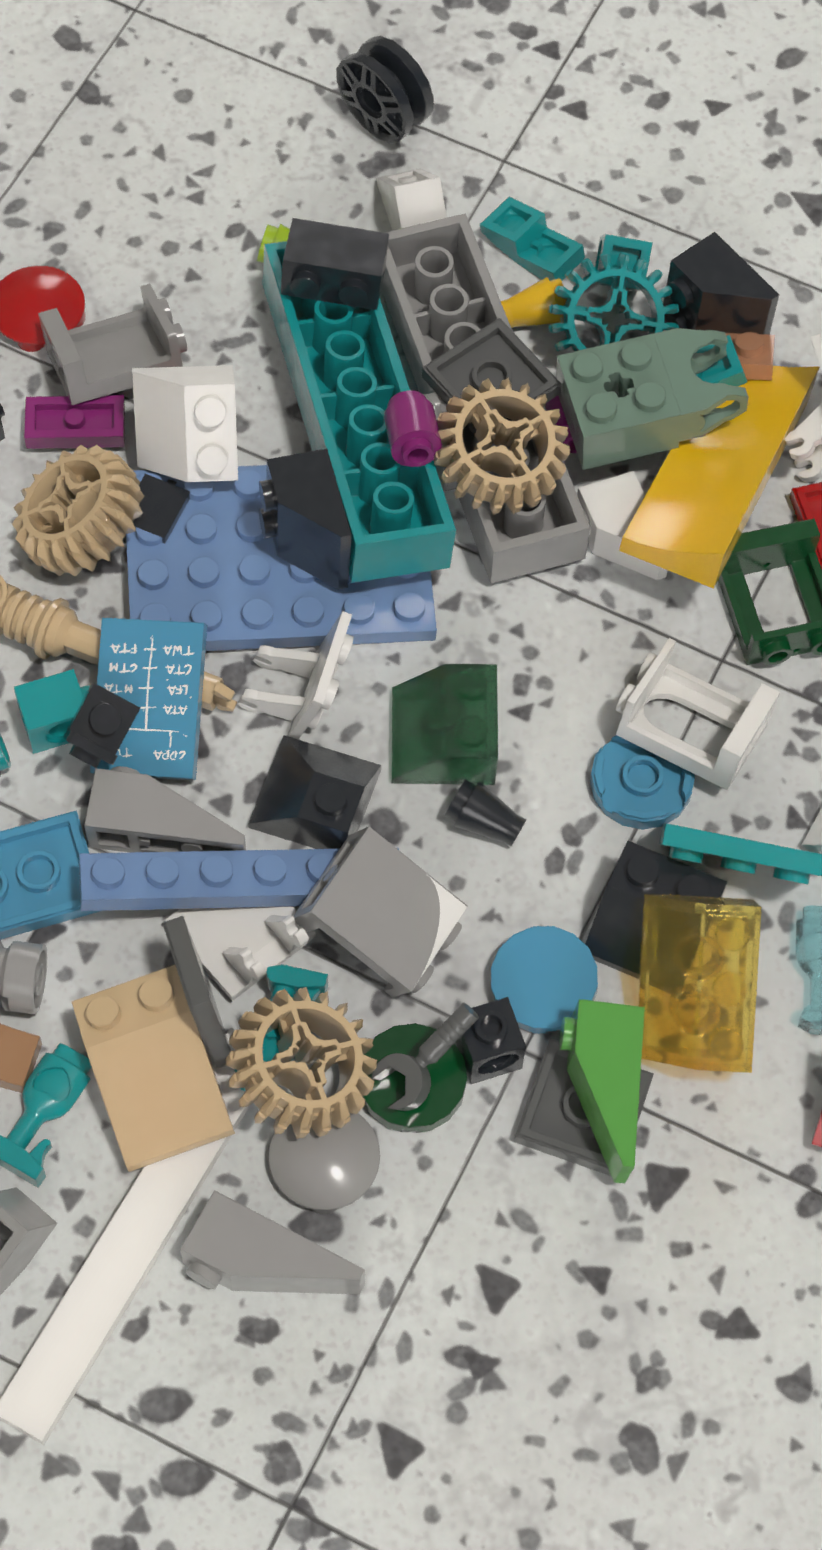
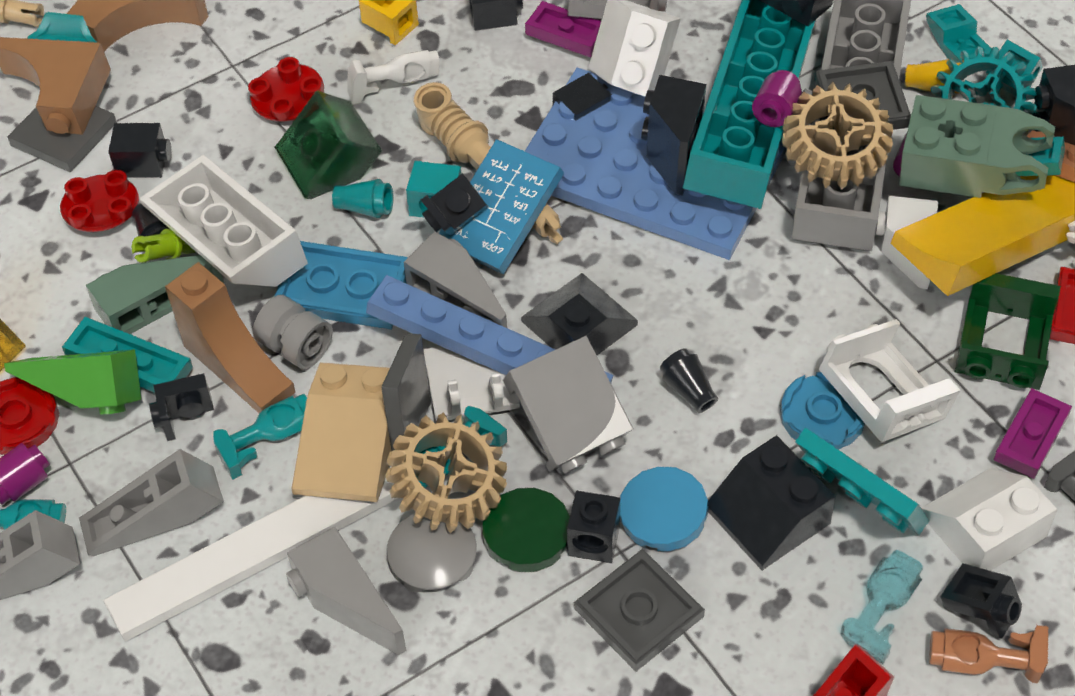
camera: 35 degrees right, 10 degrees down
(78, 510) = (528, 75): tan gear -> none
(317, 666) = (621, 238): white plate -> none
(414, 1068) = (525, 517): dark grey piece -> none
(446, 726) = (700, 313): clear green slope -> none
(606, 1071) = (669, 575): bright green slope -> none
(699, 981) = (772, 555): clear yellow slope -> none

